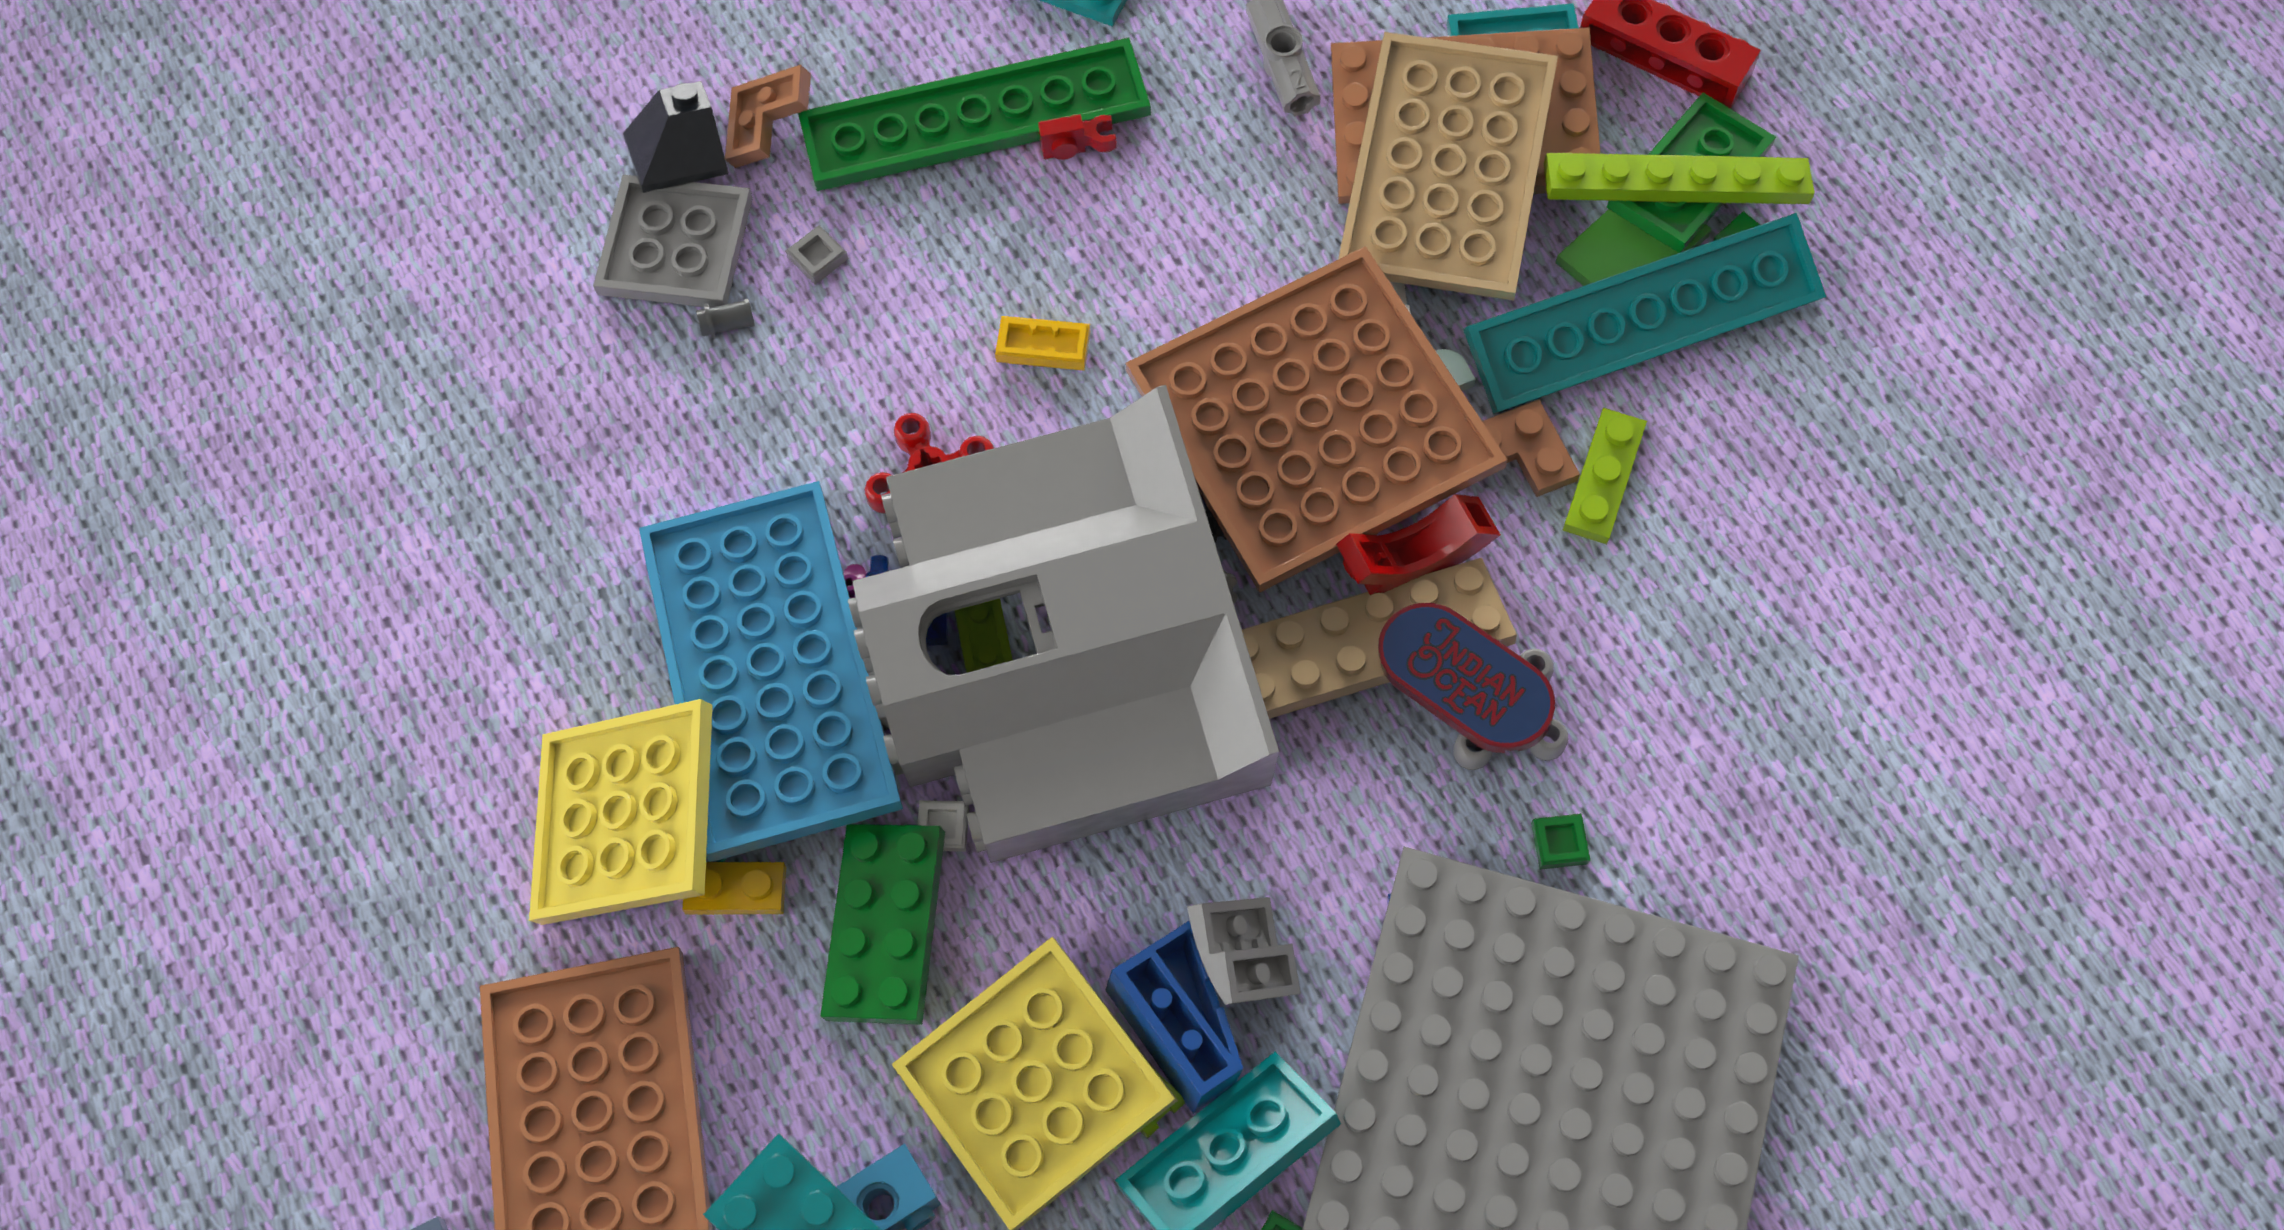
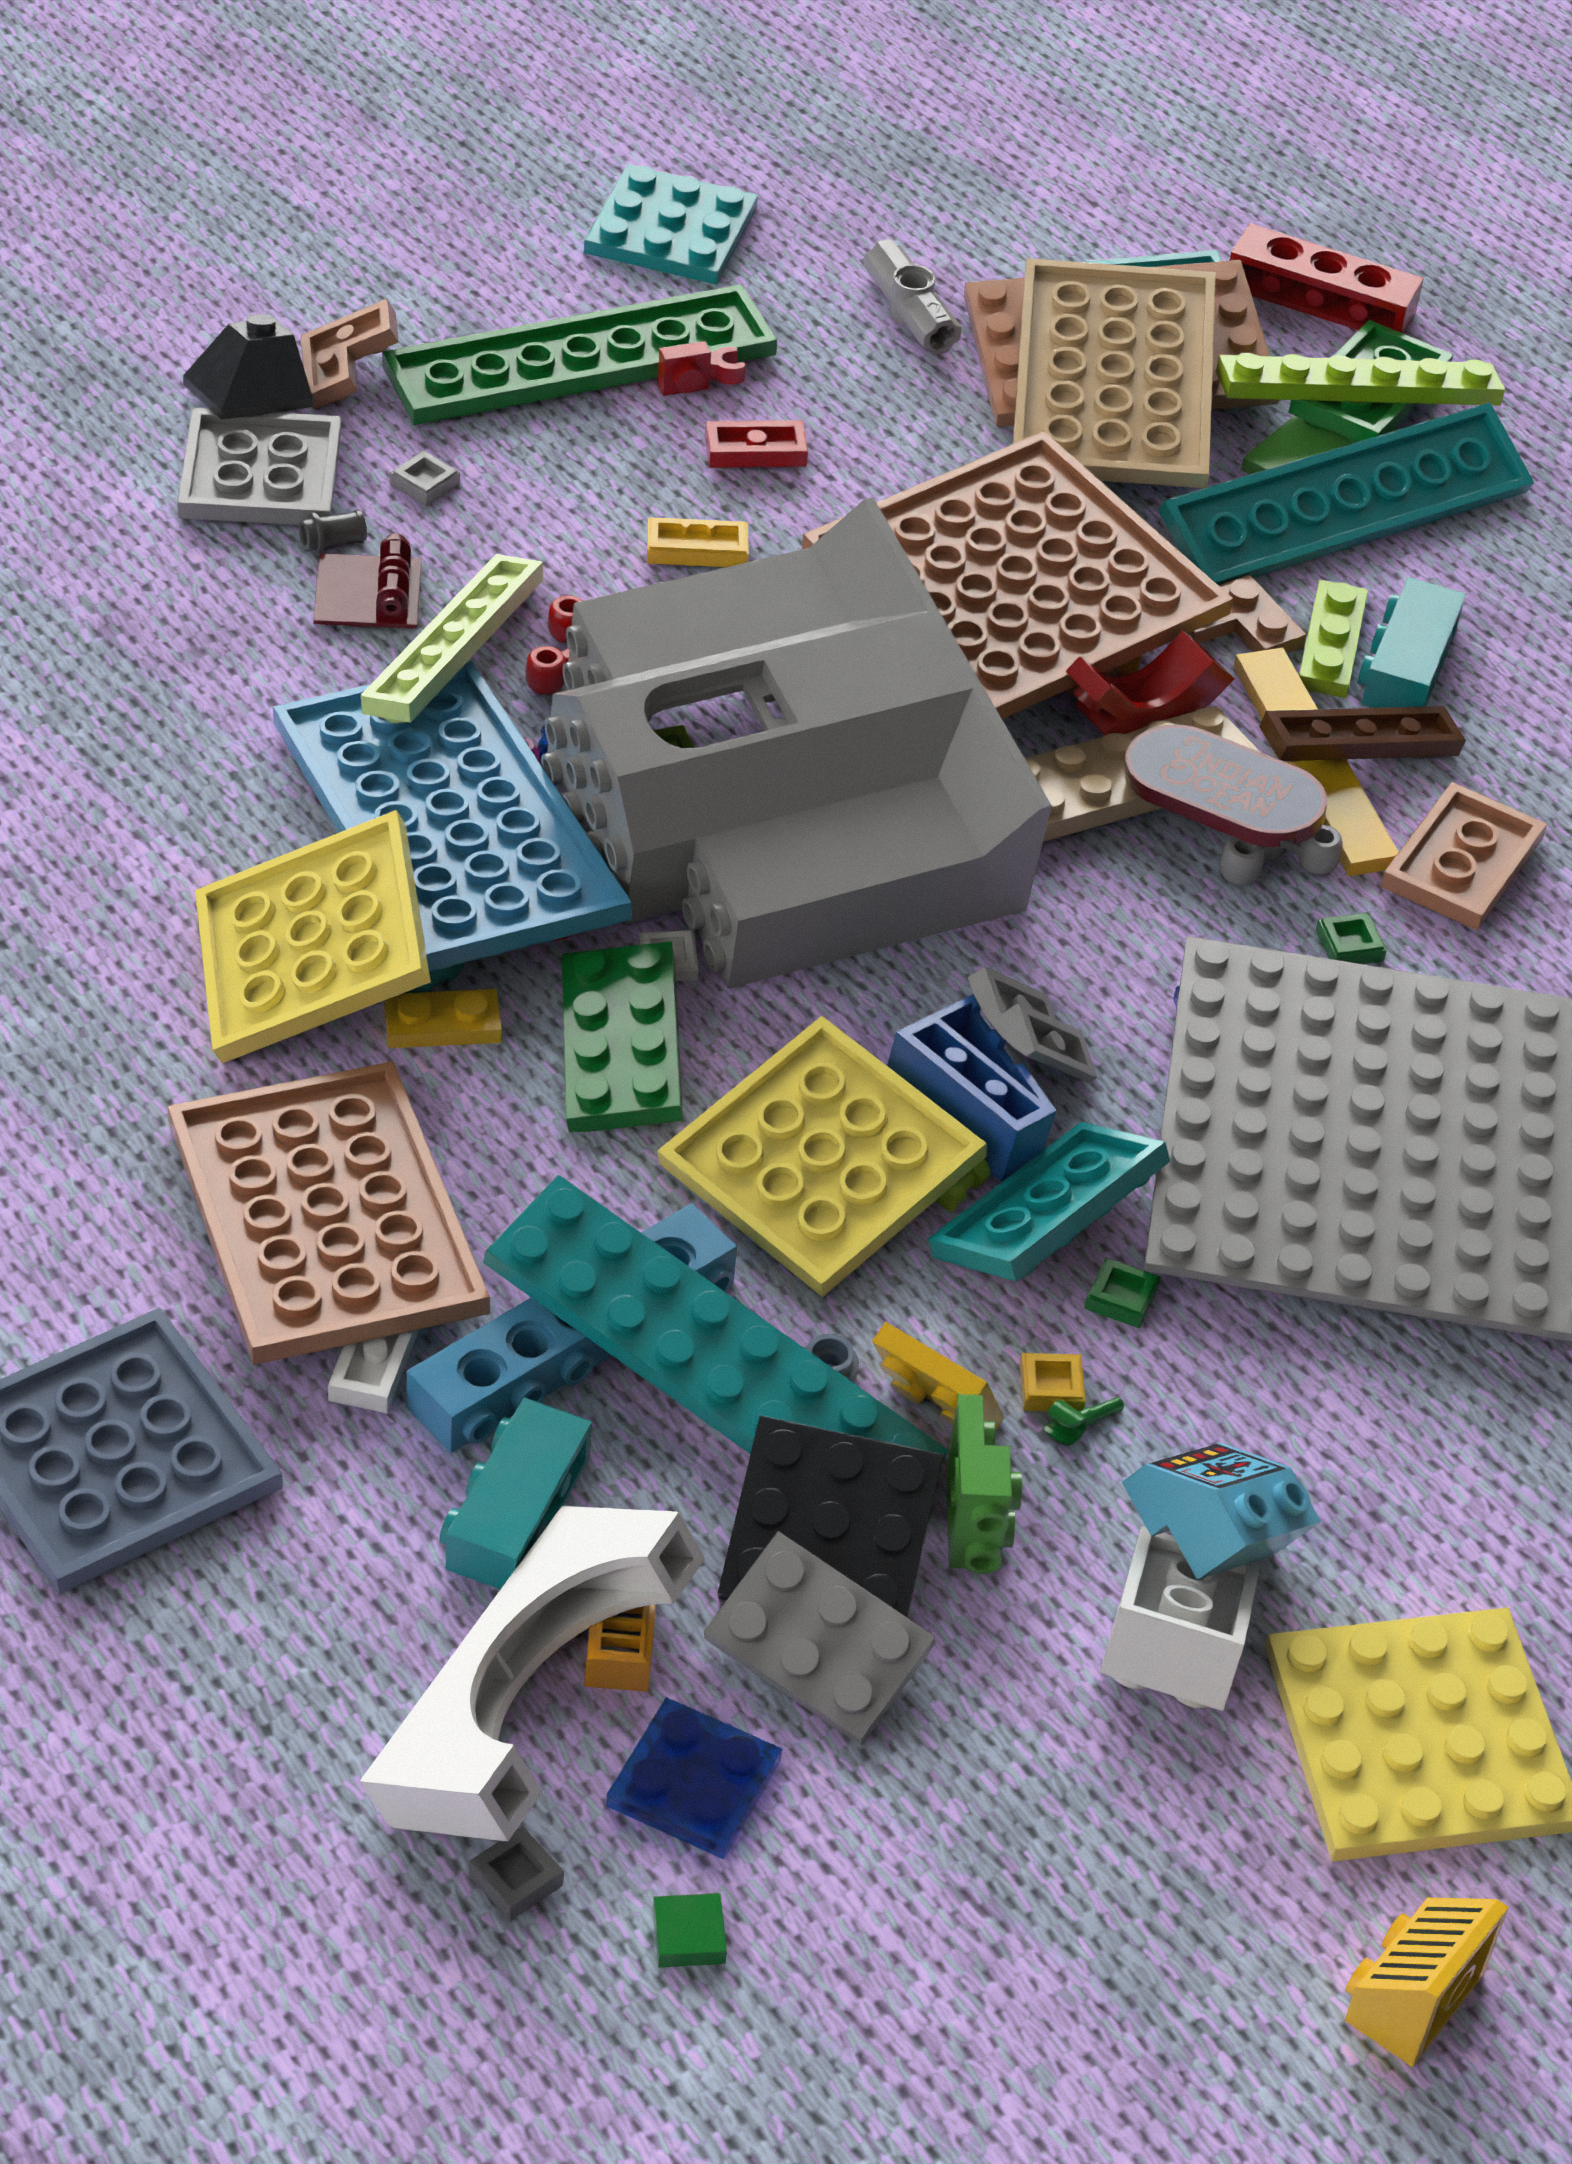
camera: 15 degrees left, 20 degrees down
(747, 385) = (369, 588): none -> hinge
(801, 462) = (451, 639): none -> yellowish green plate
(1113, 226) = (756, 443): none -> red plate
(1564, 625) = (1276, 686): none -> yellow tile
(1608, 606) = (1362, 733): none -> reddish brown plate
(1673, 498) = (1411, 646): none -> brick
(1682, 750) = (1464, 855): none -> nougat plate

